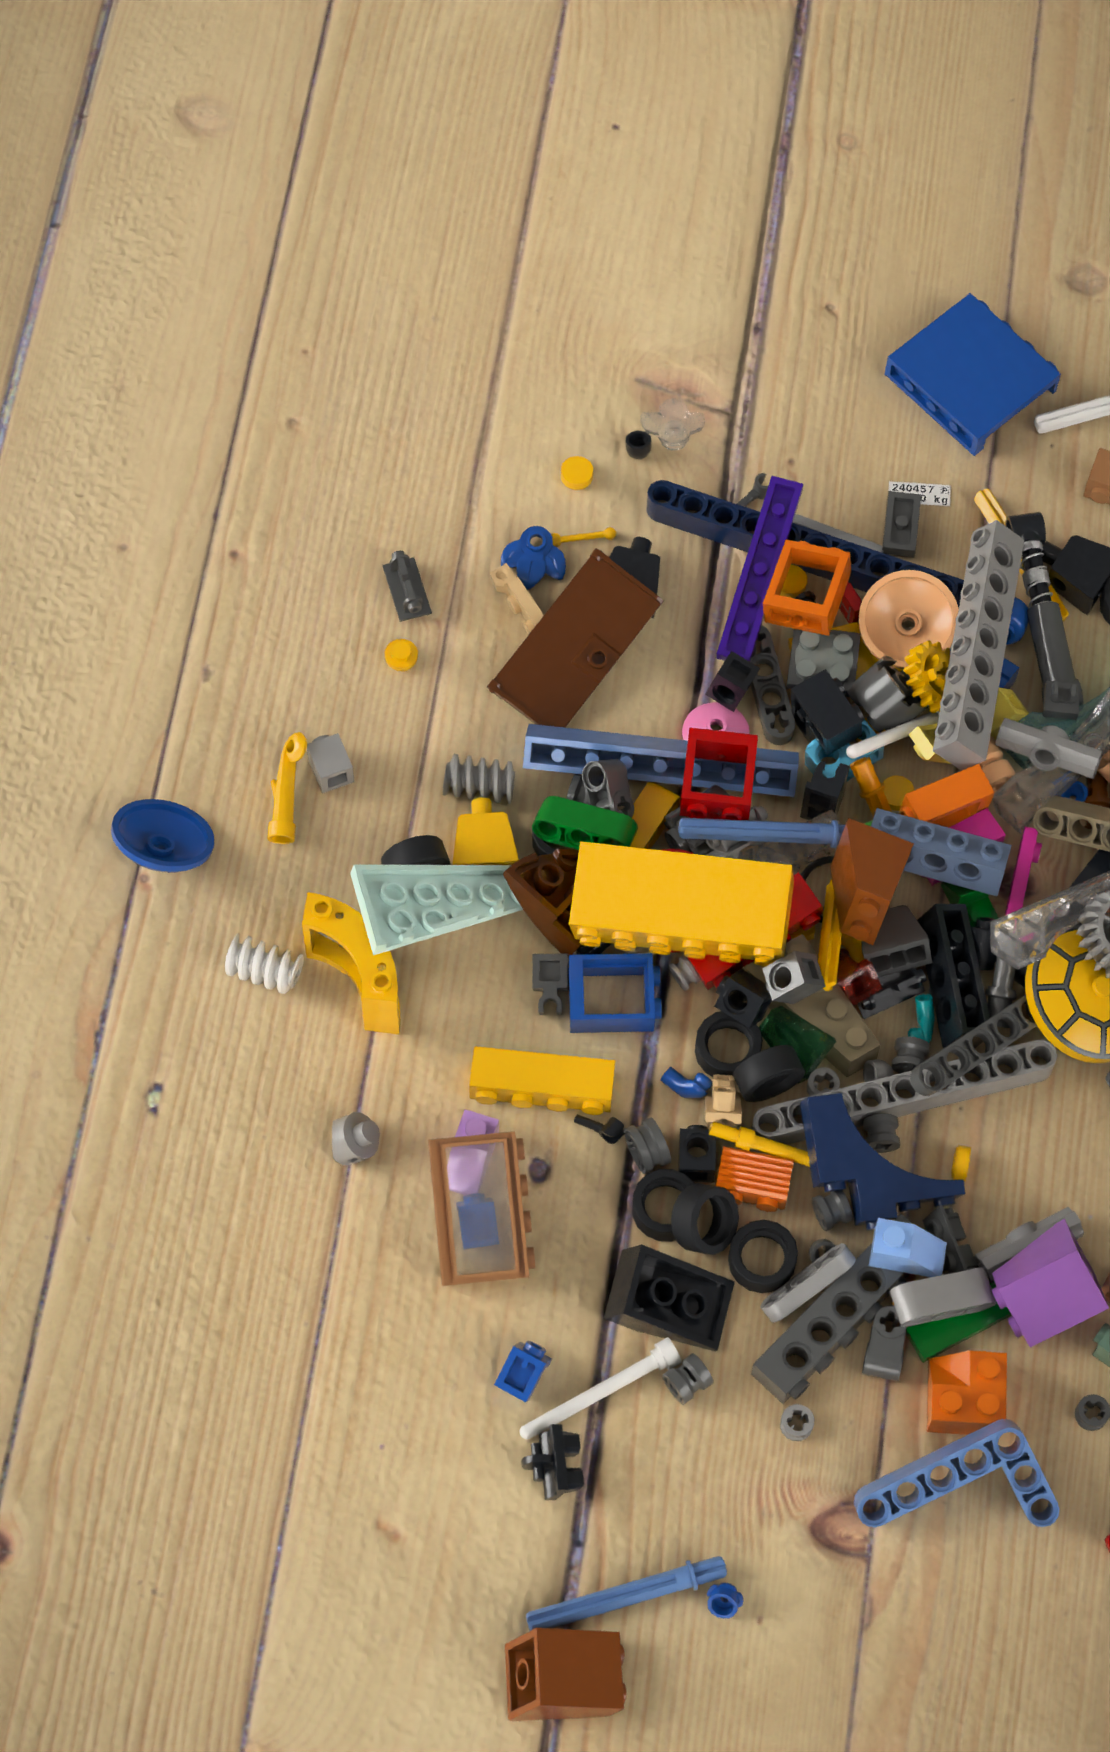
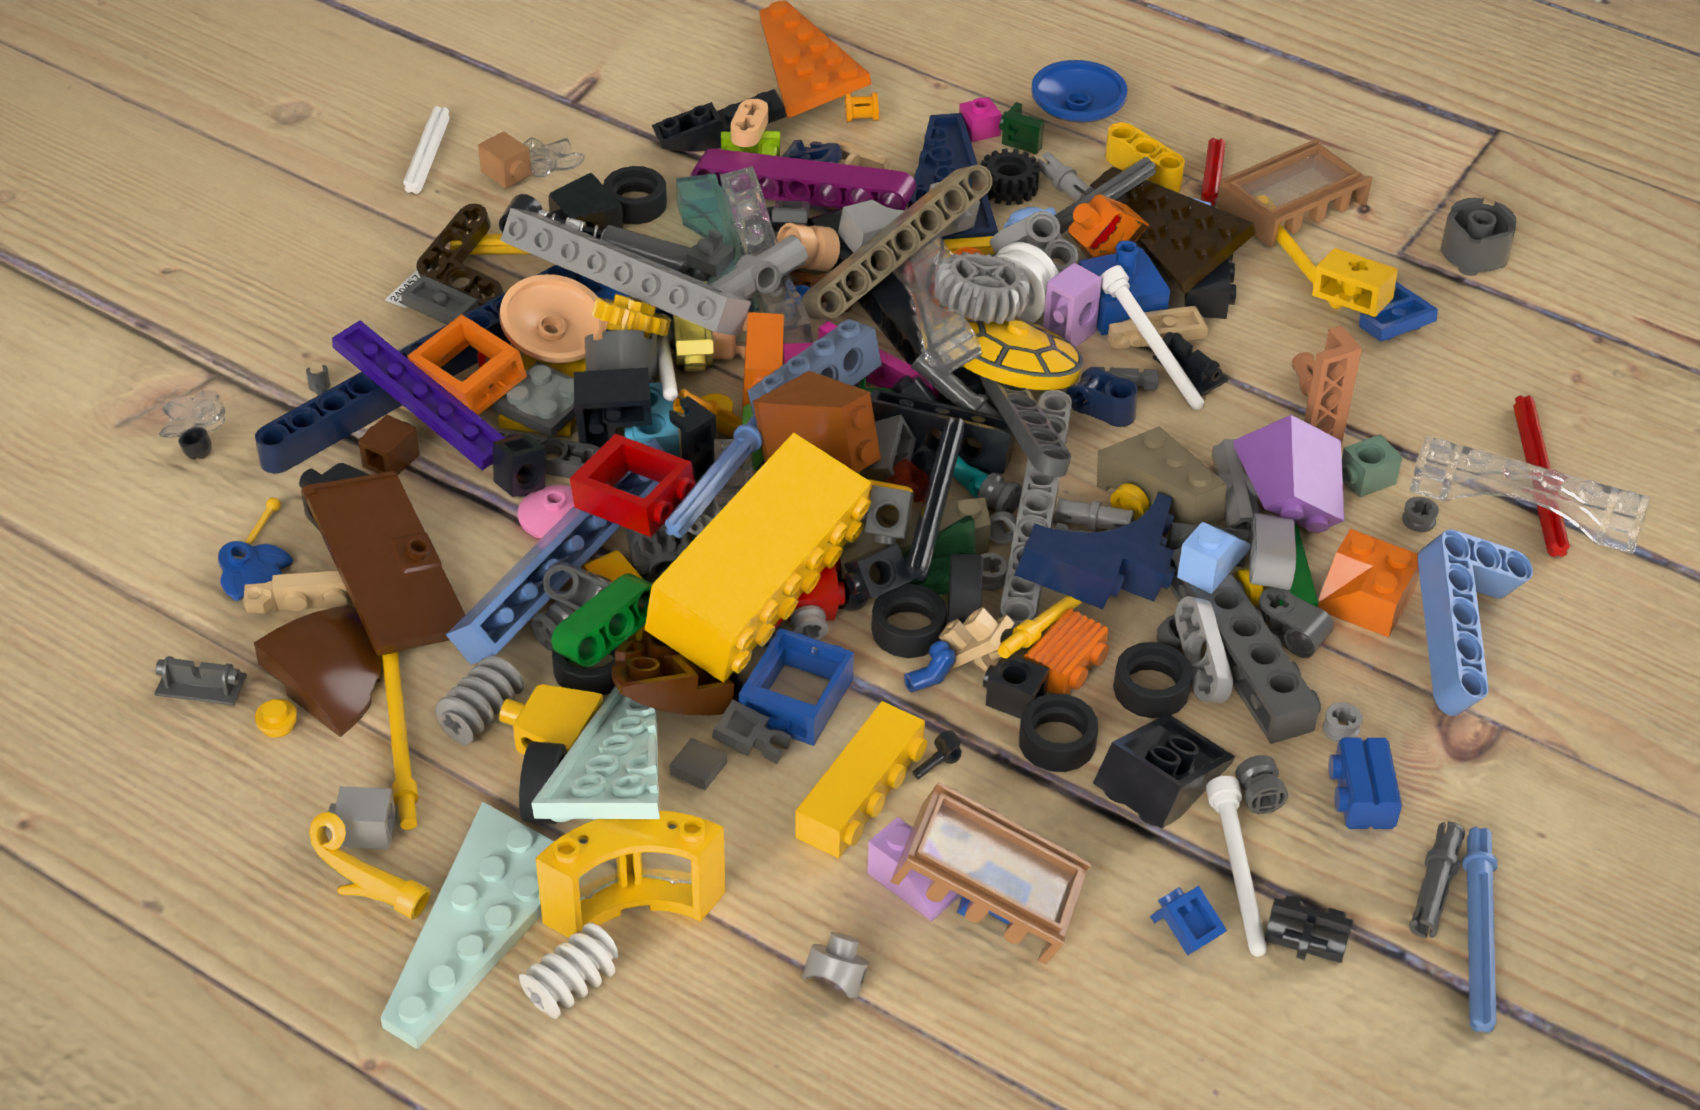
camera: 65 degrees left, 20 degrees down
(162, 835) = (342, 1007): blue dish -> none
(279, 879) = (472, 925): none -> light aqua wing
(378, 774) = (404, 788): none -> yellow bar
(462, 659) = (324, 665): none -> reddish brown brick
(505, 959) = (698, 763): none -> dark grey tile
(564, 1674) = (1560, 1013): dark orange slope -> none
(576, 472) = (183, 503): yellow tile -> none
(647, 1145) = (987, 717): dark grey wheel -> none
(661, 1546) = (1441, 867): none -> dark grey pin
(686, 1213) = (1097, 697): black tyre -> none
(709, 579) = (389, 446): none -> reddish brown brick
(724, 1600) = (1517, 846): blue plate -> none
(731, 1459) = (1366, 783): none -> blue brick
(832, 1209) = (1130, 609): dark grey wheel -> none
(845, 1005) = (935, 499): none -> black axle
(932, 1141) = (1092, 515): none -> light grey pin
(944, 510) = (451, 260): none -> dark brown beam
(970, 372) = (327, 202): blue panel -> none
(1000, 1178) = (1163, 465): none -> dark tan wedge
(1087, 1088) = (1107, 397): none -> dark blue piece

